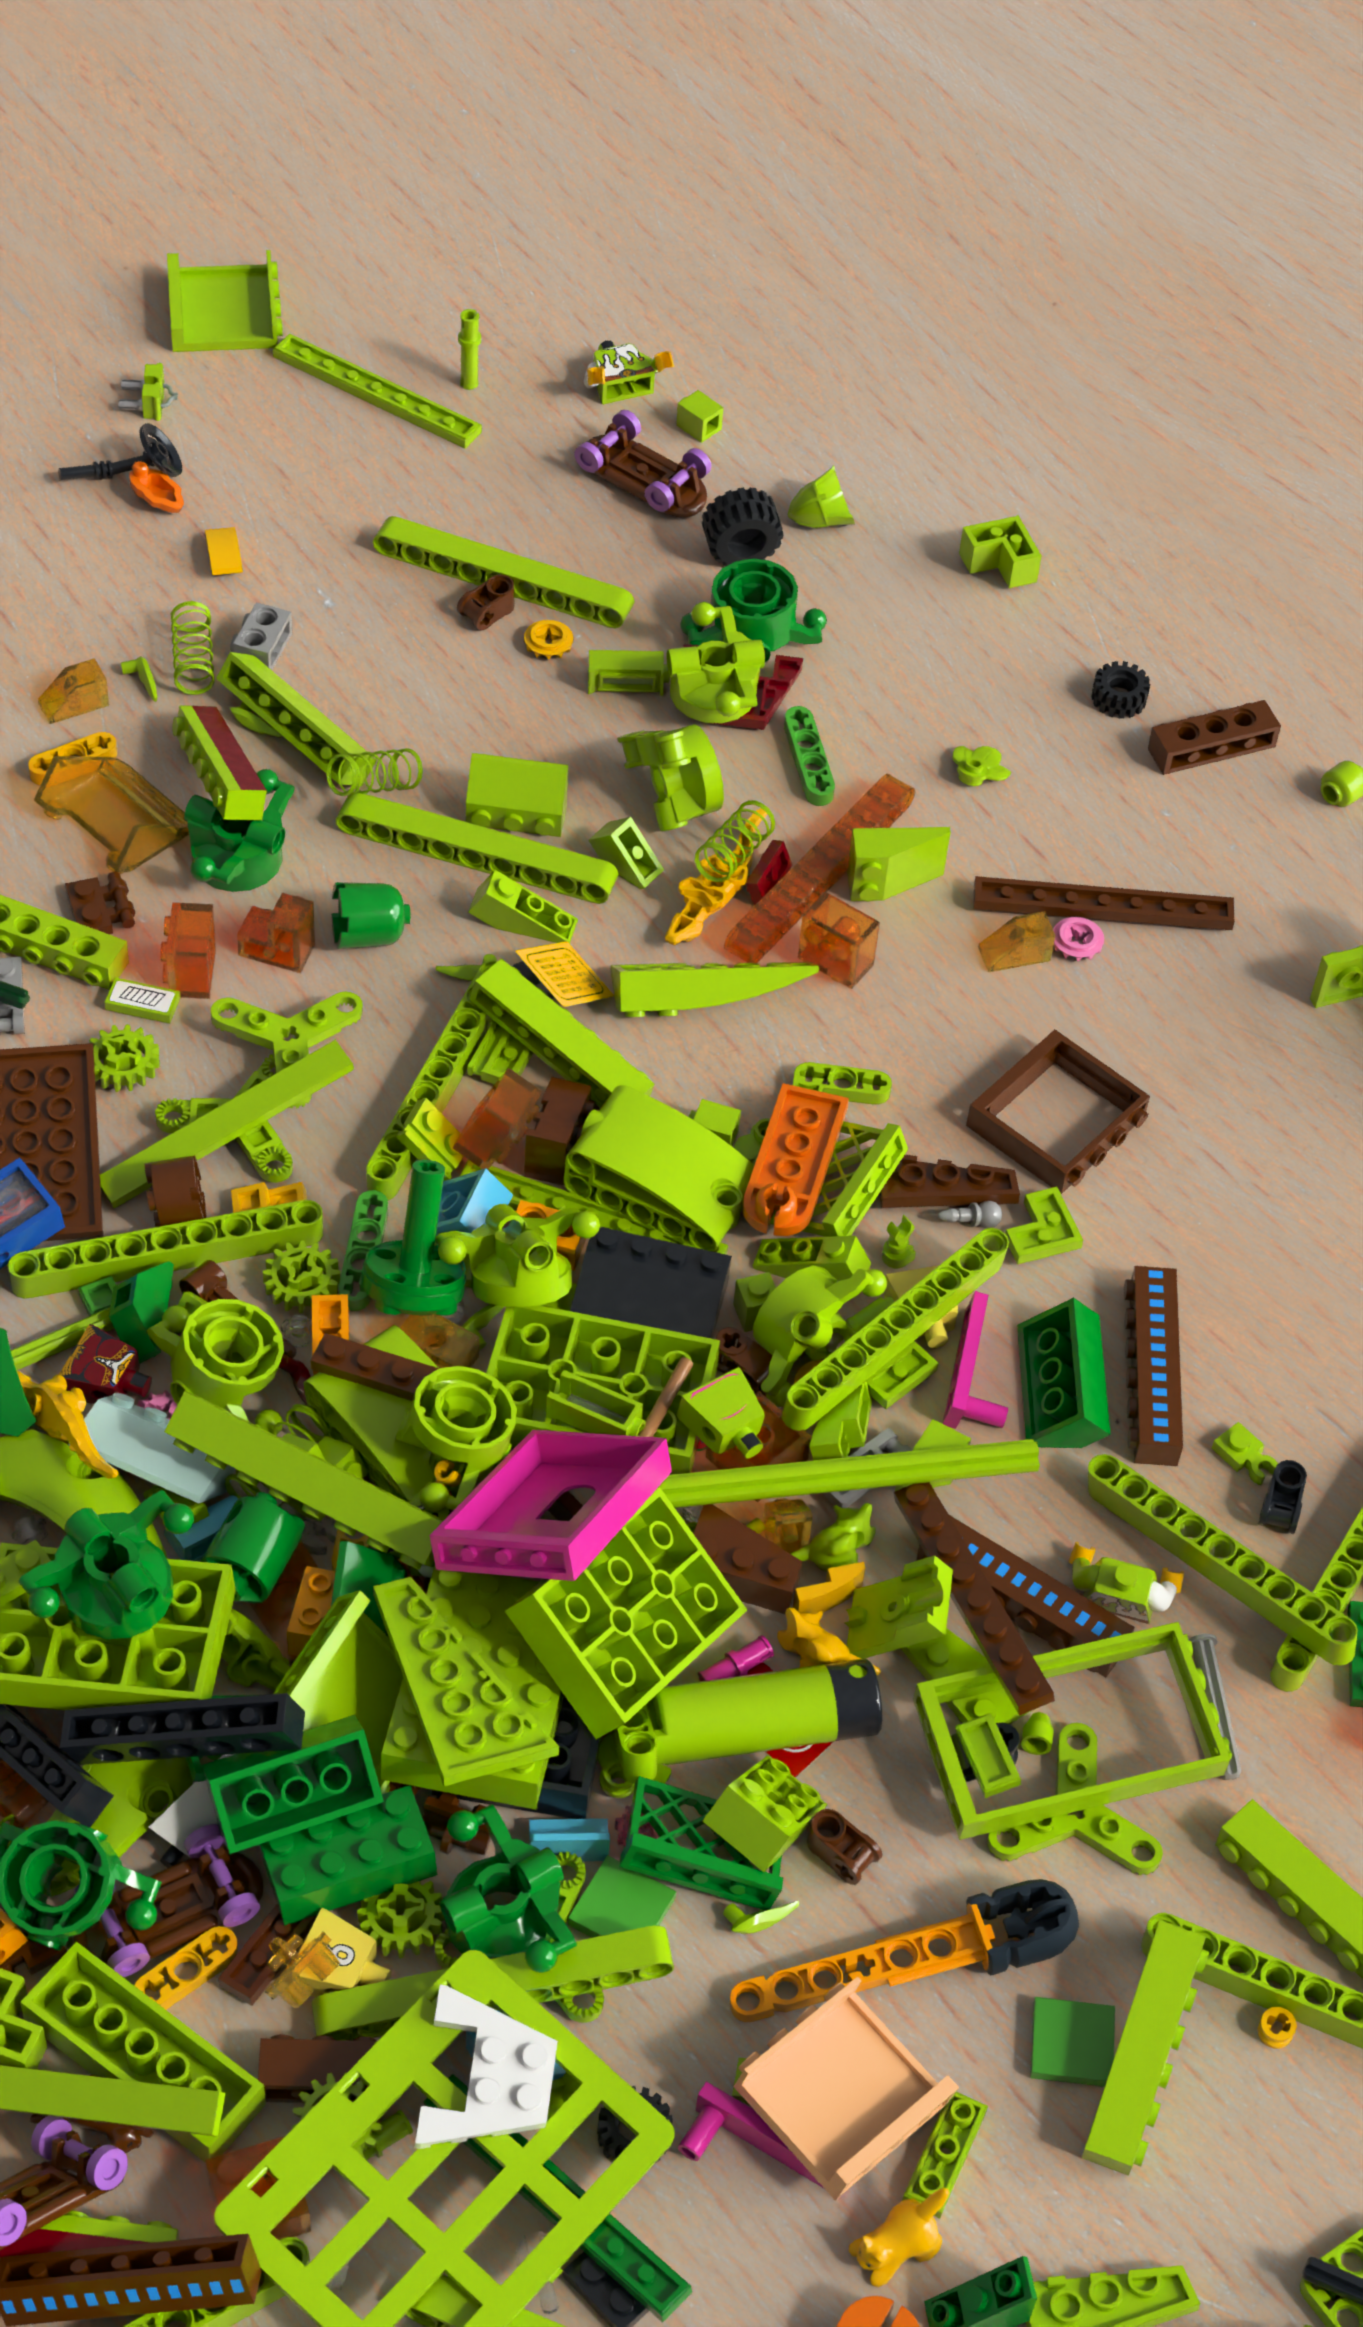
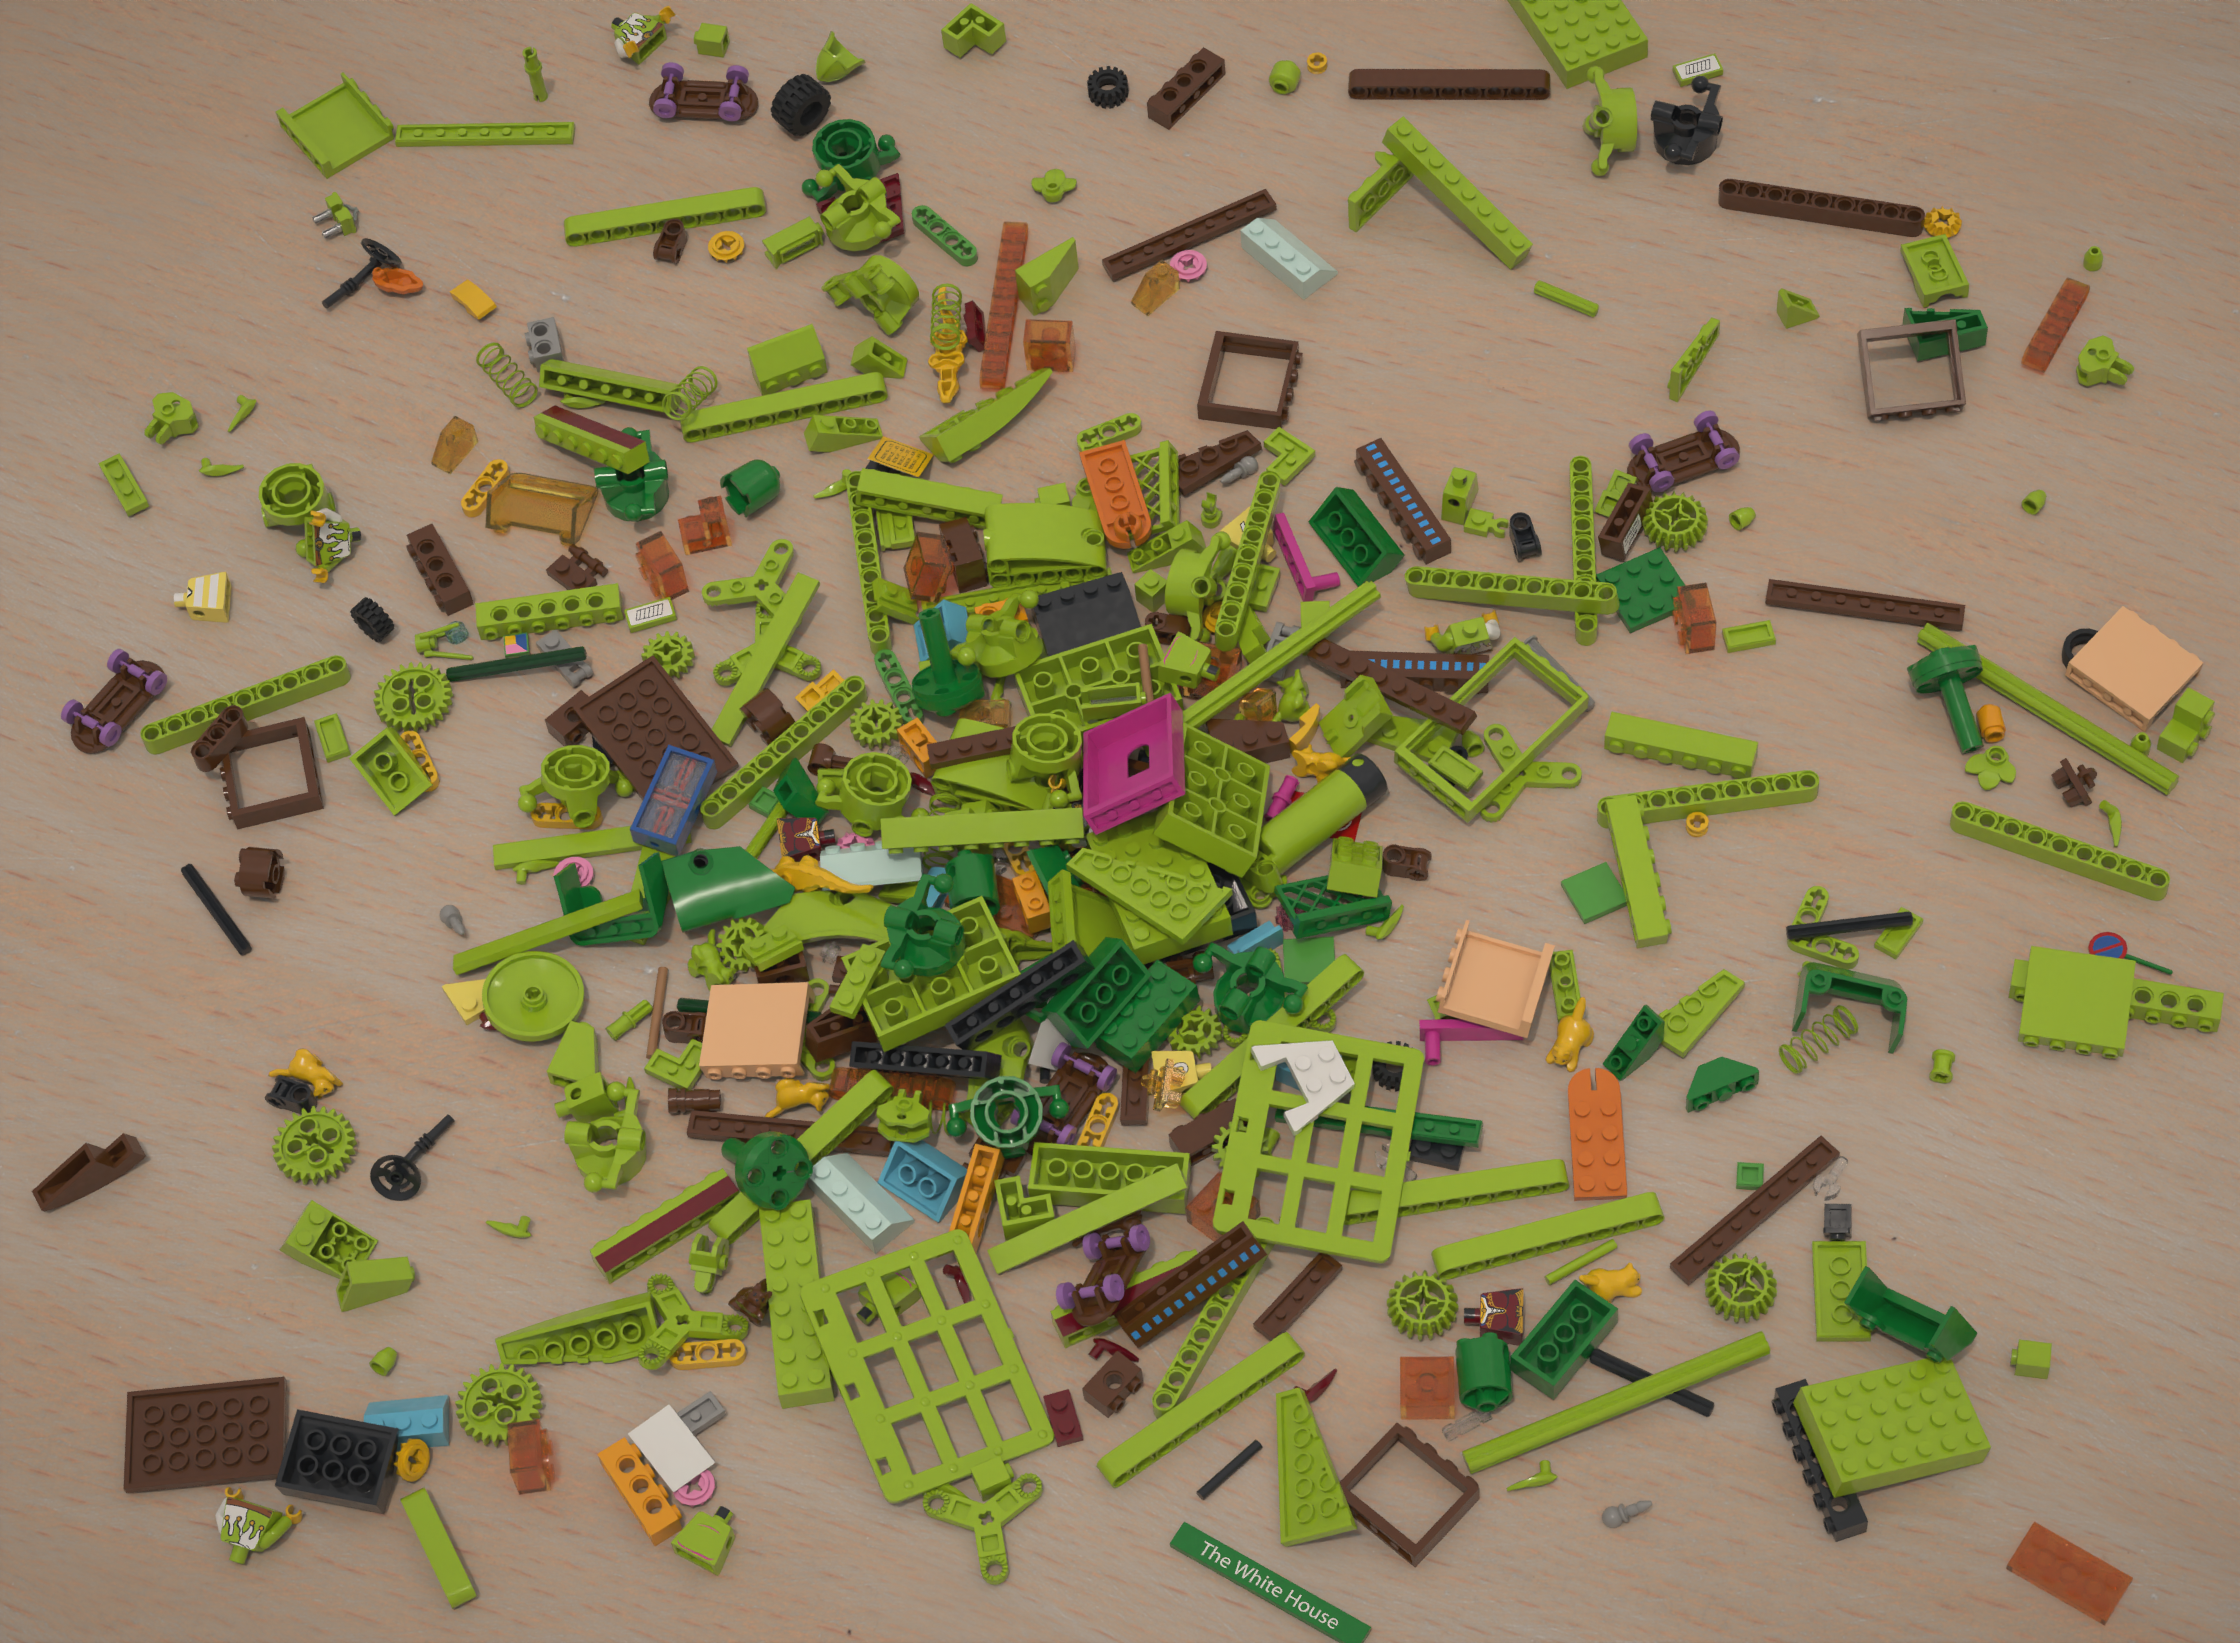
camera: 20 degrees left, 5 degrees up
(141, 666) = (488, 409): lime bar -> none
(1051, 1919) = (1544, 834): piece -> none
(1207, 989) = (1286, 256): none -> light aqua slope
(1240, 1389) = (1461, 487): none -> lime torso

